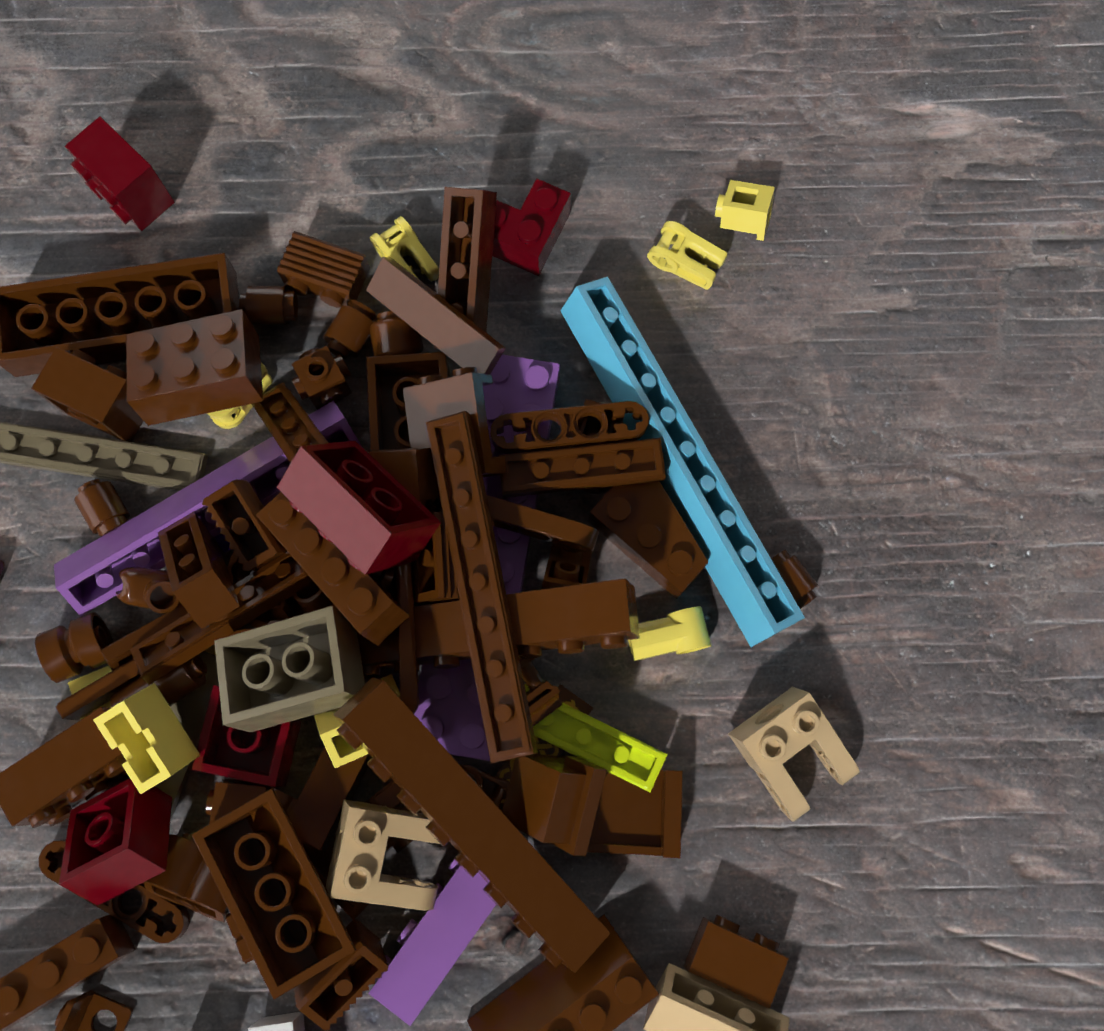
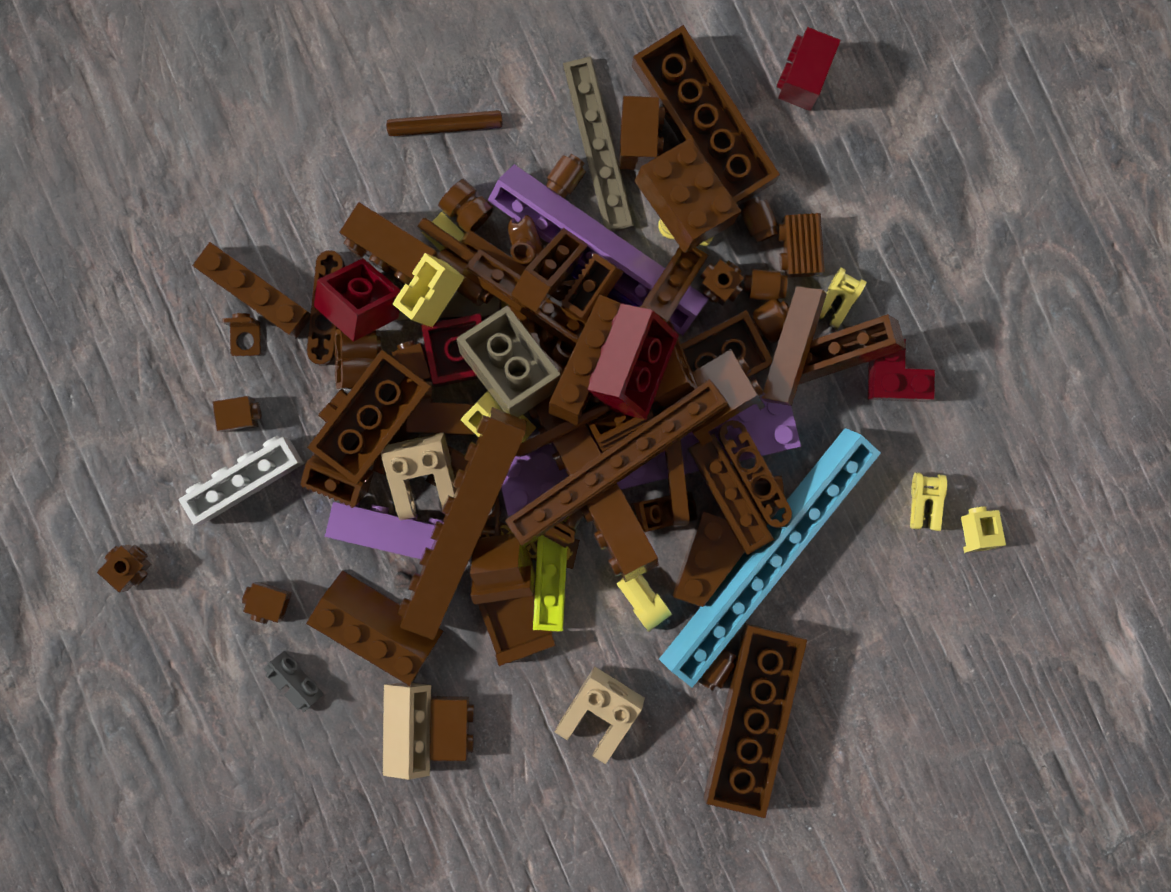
camera: 65 degrees right, 10 degrees up
(876, 561) = (755, 720): none -> reddish brown brick

